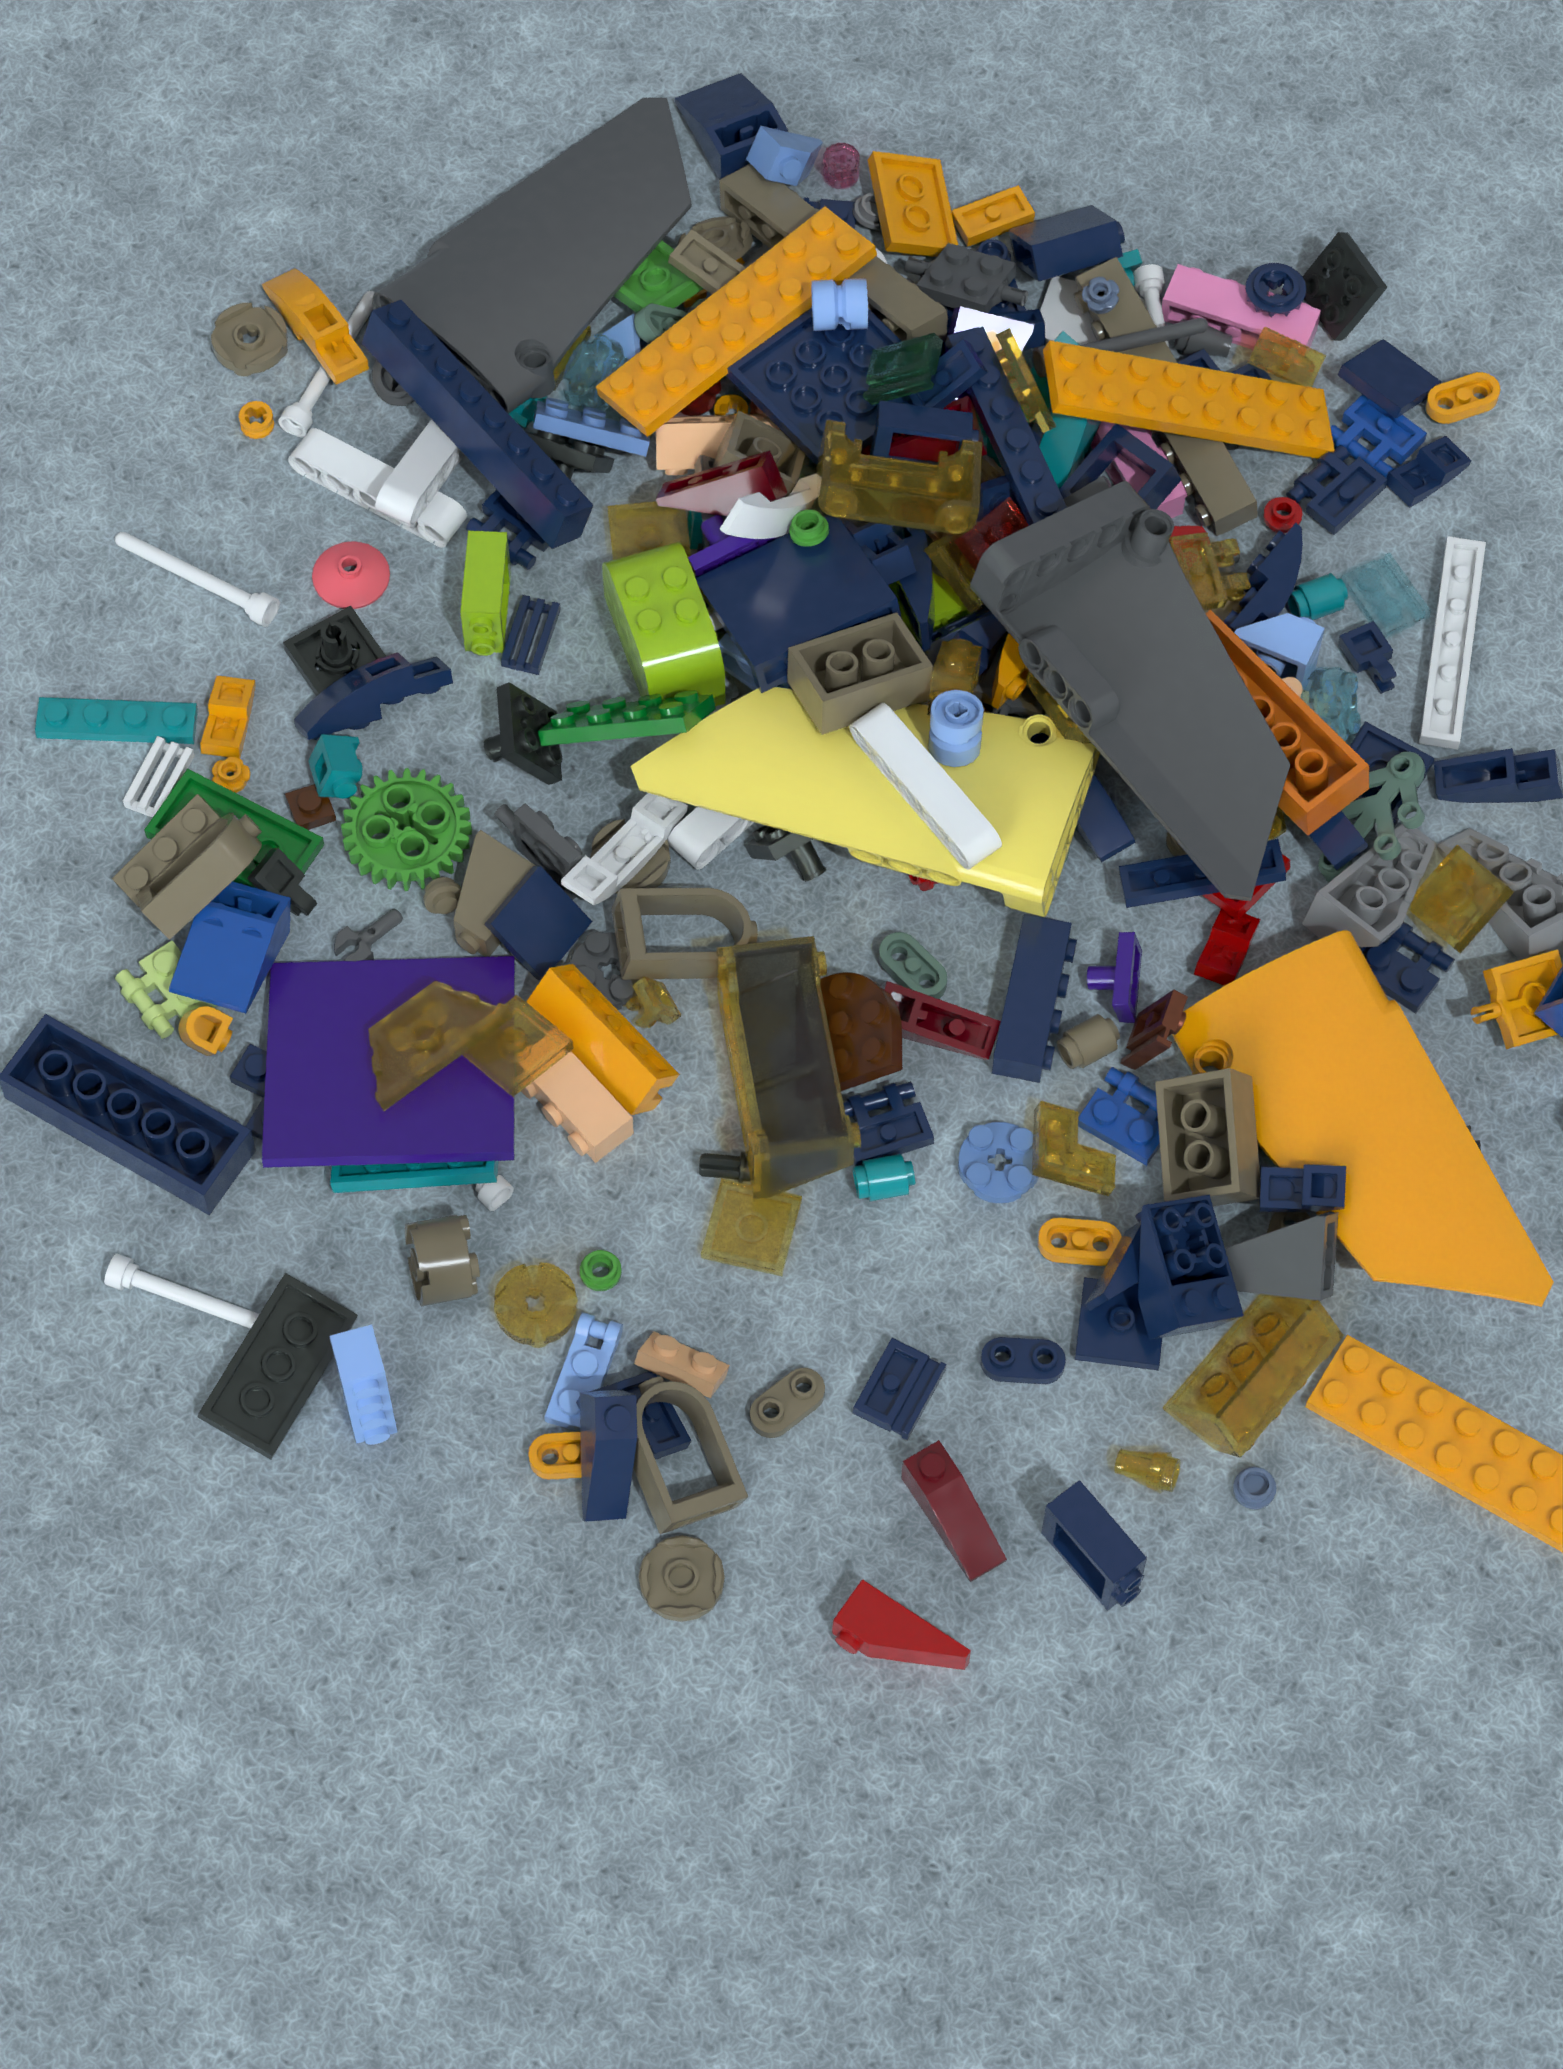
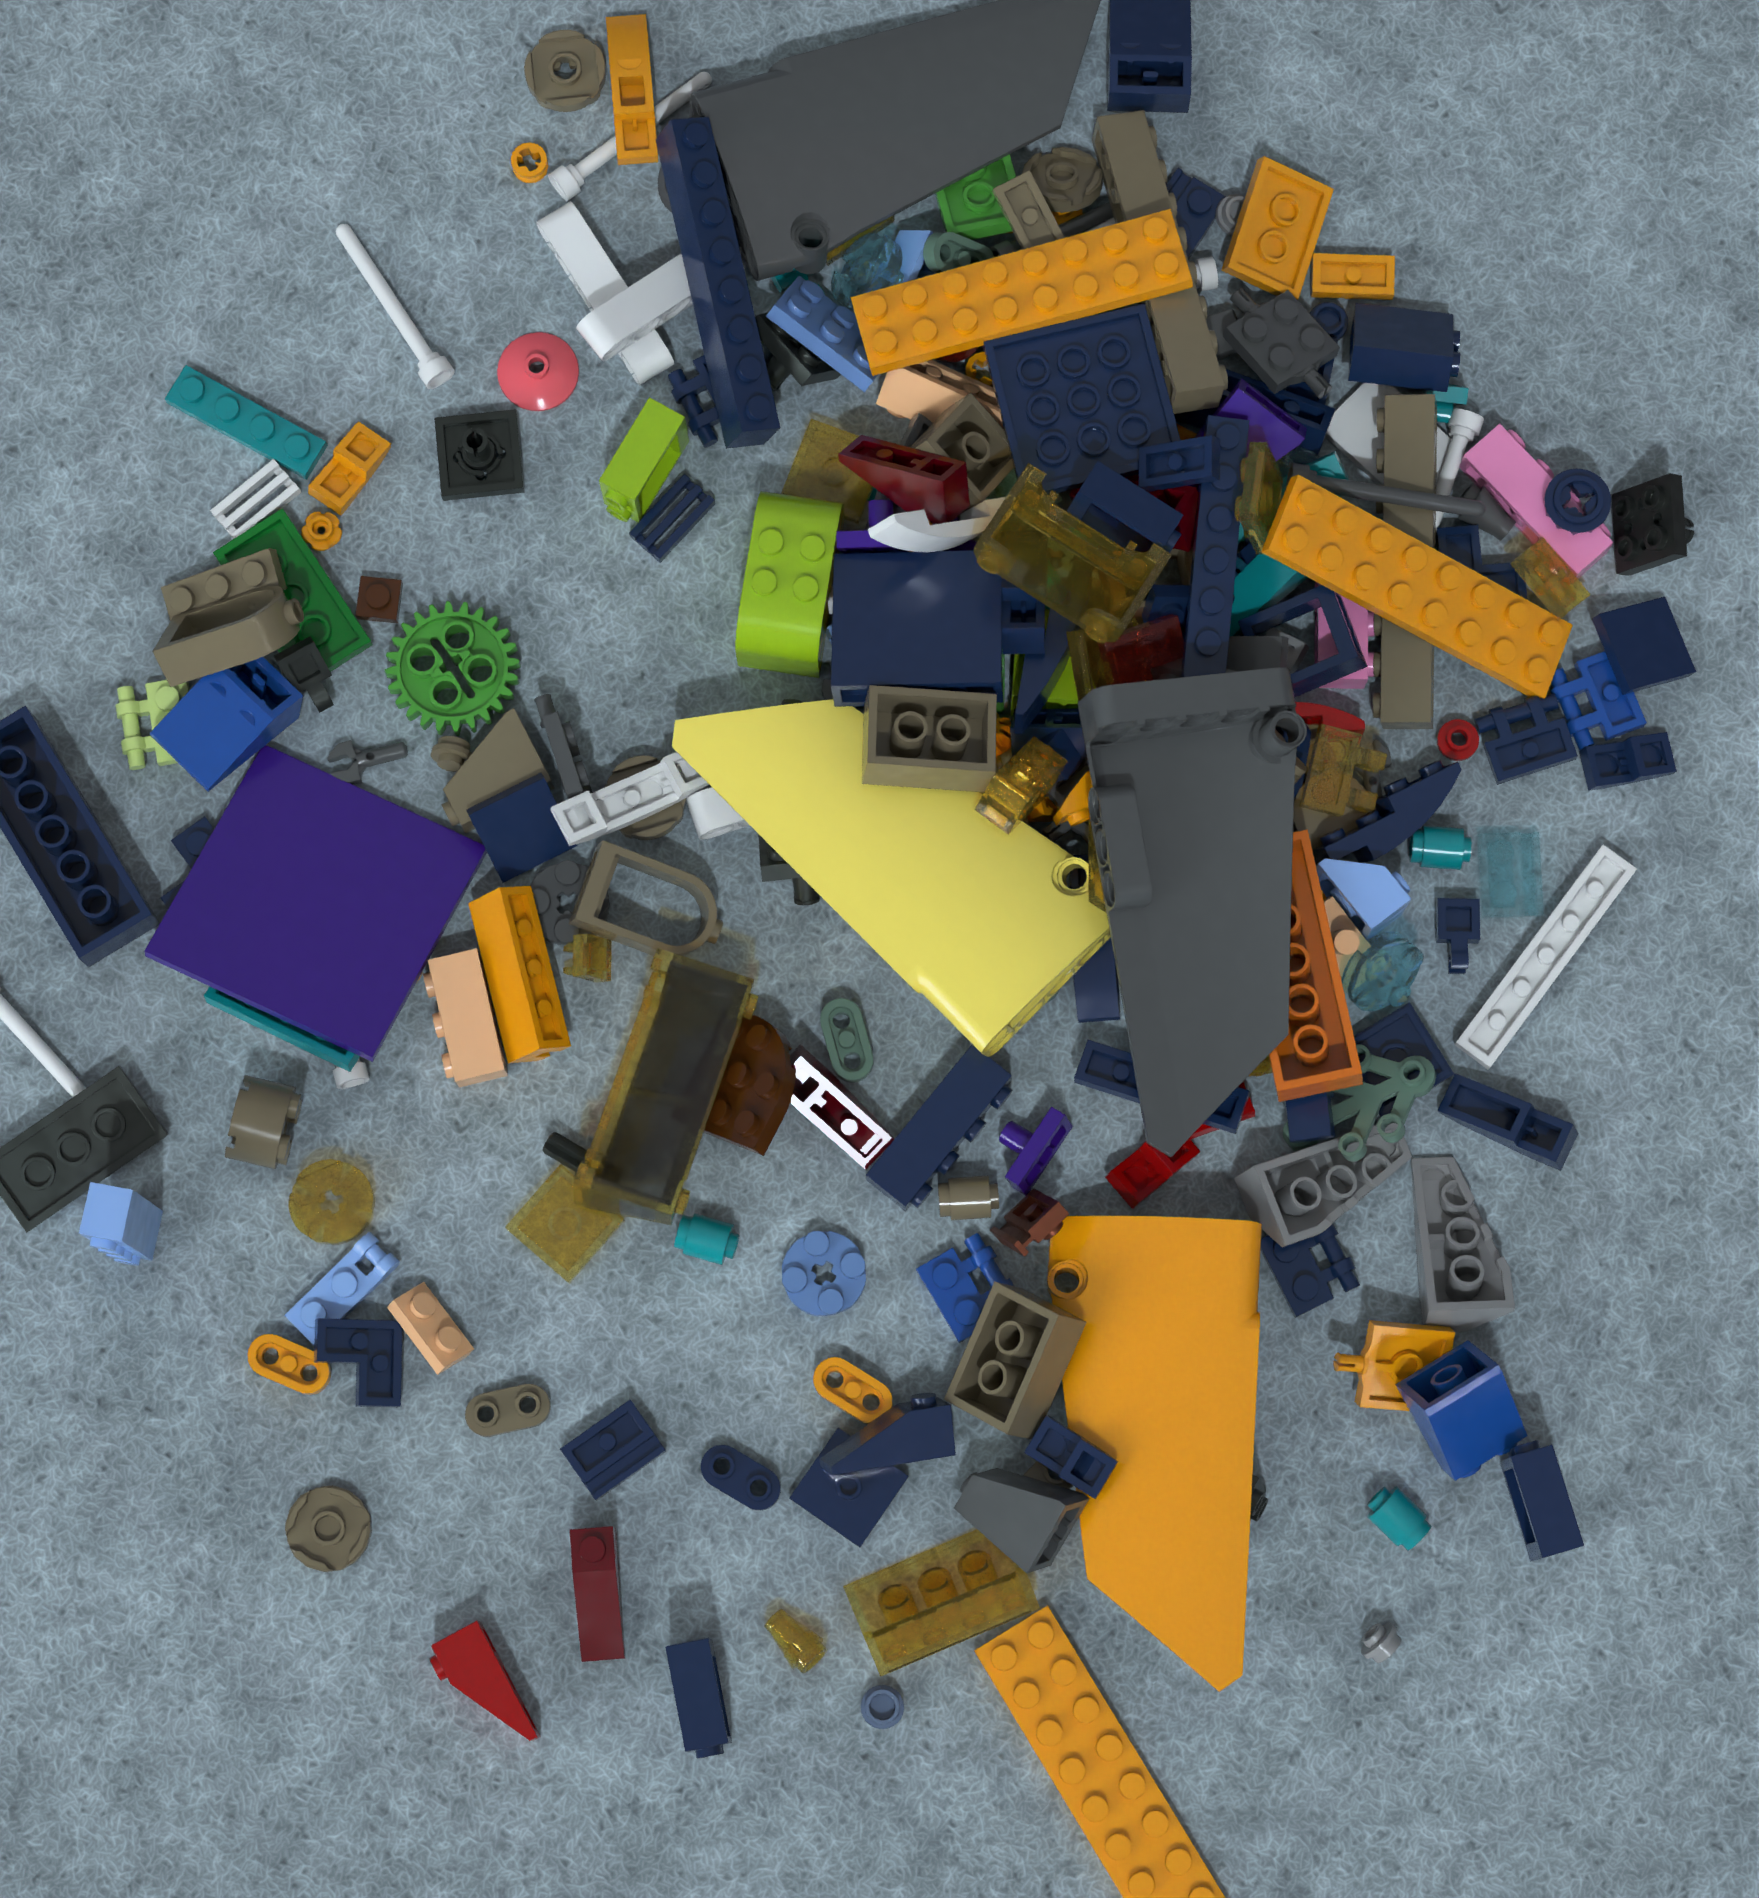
camera: 30 degrees right, 15 degrees up
(205, 1030) = (169, 785): light orange plate -> none
(336, 766) = (416, 575): teal brick -> none
(357, 696) = (473, 509): dark blue slope -> none
(427, 1037) = (352, 902): clear yellow wing -> none
(519, 738) = (601, 626): pearl dark grey plate -> none
(520, 1048) = (431, 947): clear yellow plate -> none
(596, 1259) = (400, 1186): bright green plate -> none
(607, 1452) = (312, 1384): dark blue slope -> none
(625, 719) = (701, 666): green plate -> none
(701, 1505) = (368, 1473): dark tan window -> none
(783, 155) = (1173, 120): medium blue slope -> none
(808, 528) = (957, 552): bright green plate -> none
(839, 304) = (1122, 330): light blue wheel -> none
(848, 172) = (1229, 158): clear pink wheel -> none
(891, 1132) = (735, 1195): dark blue plate -> none
(902, 368) = (1143, 432): clear green plate -> none
(925, 786) = (927, 888): white beam -> none
(955, 728) = (986, 844): light blue wheel -> none
(1060, 1156) = (877, 1300): clear yellow plate -> none
(1104, 303) = (1398, 440): sand blue plate -> none
(1184, 1269) = (921, 1479): dark blue slope -> none
(1459, 898) = (1392, 1232): clear yellow plate -> none
(1460, 397) = (1705, 699): light orange plate -> none

